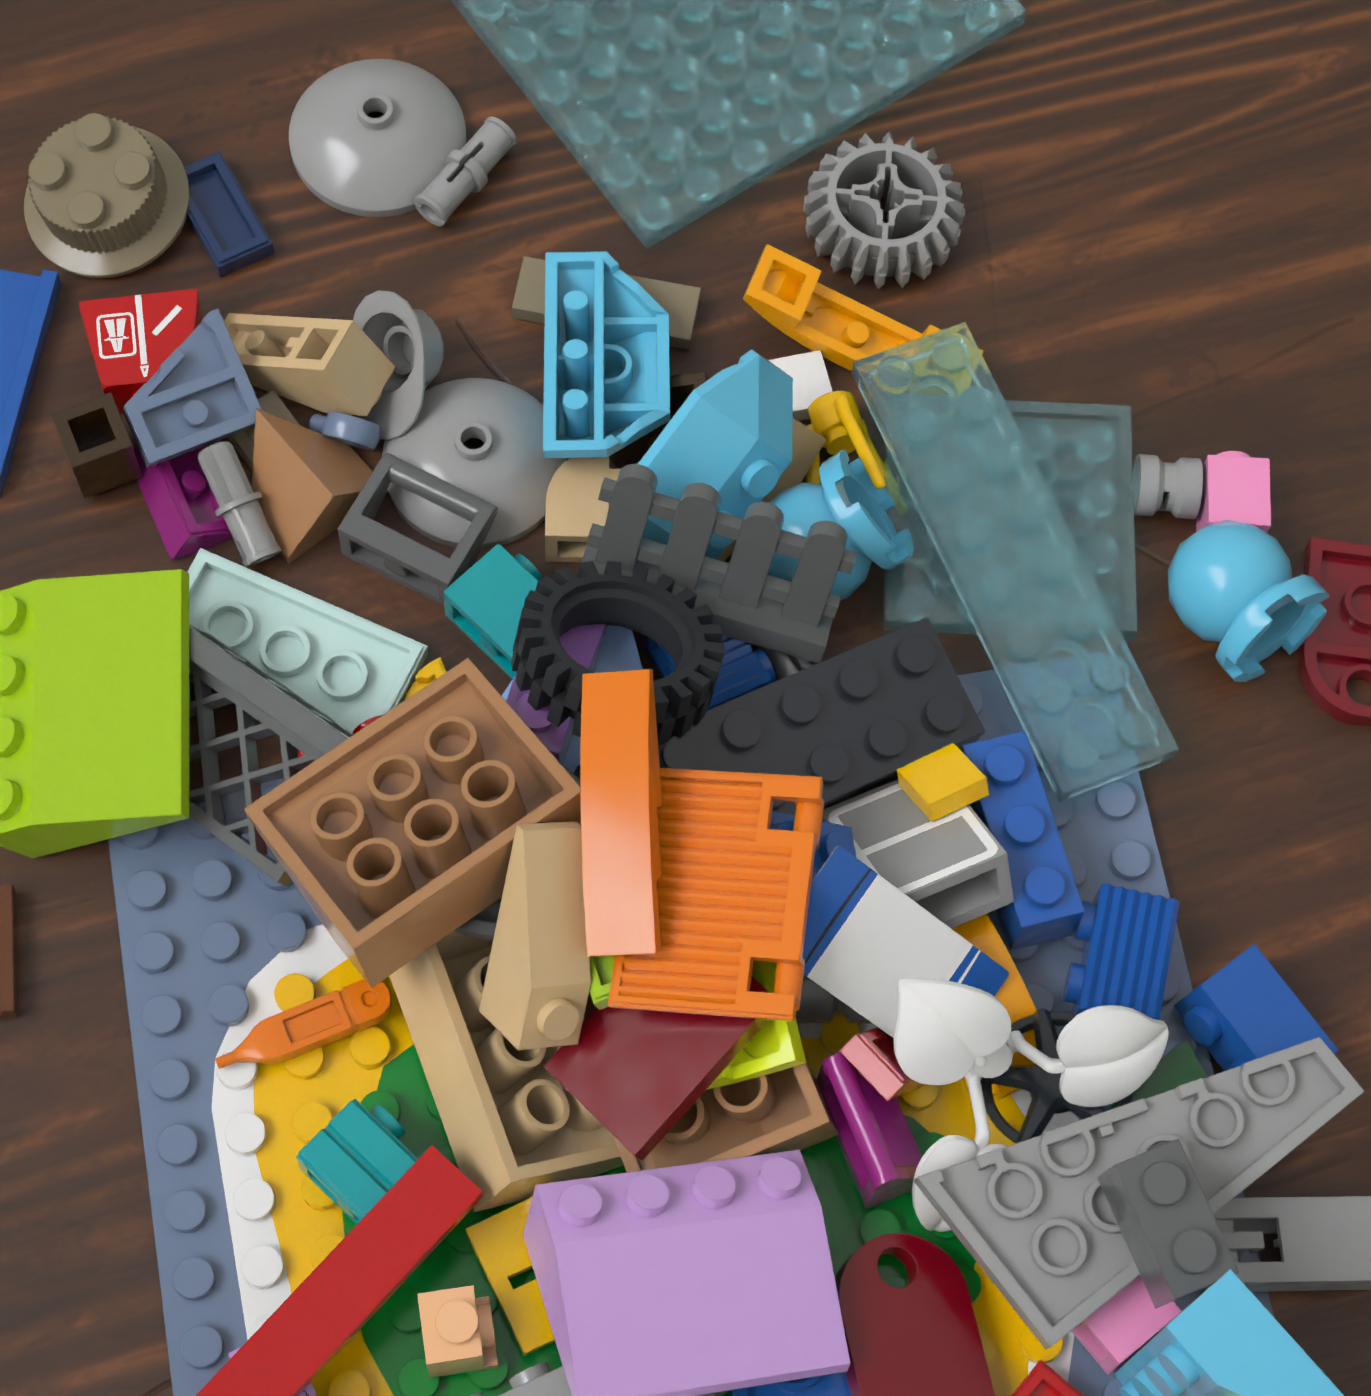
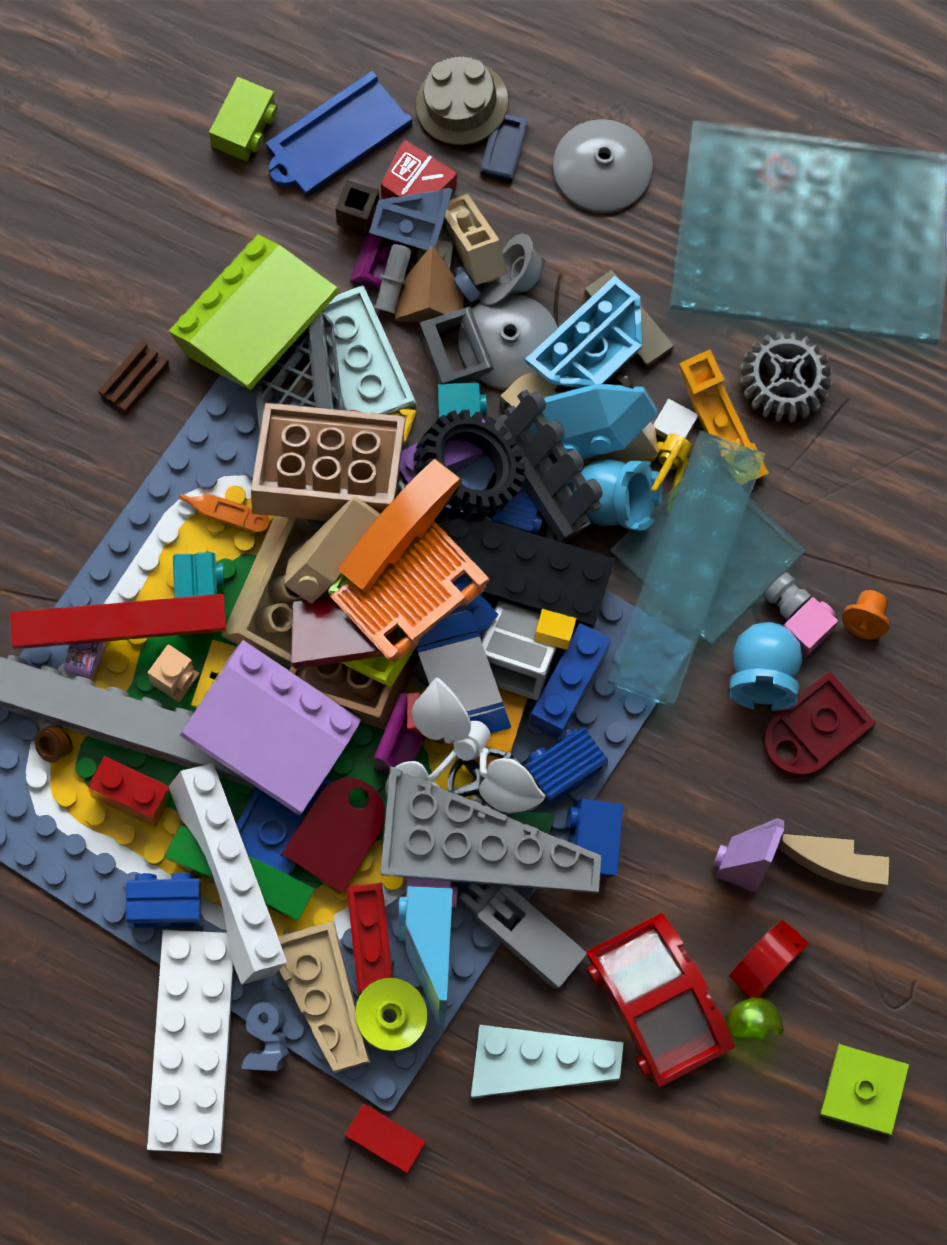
camera: 45 degrees right, 5 degrees up
(465, 171) = (622, 212): light grey pin -> none
(1167, 1223) = (465, 863): dark grey brick -> none
(1288, 425) = (867, 616): none -> orange piece

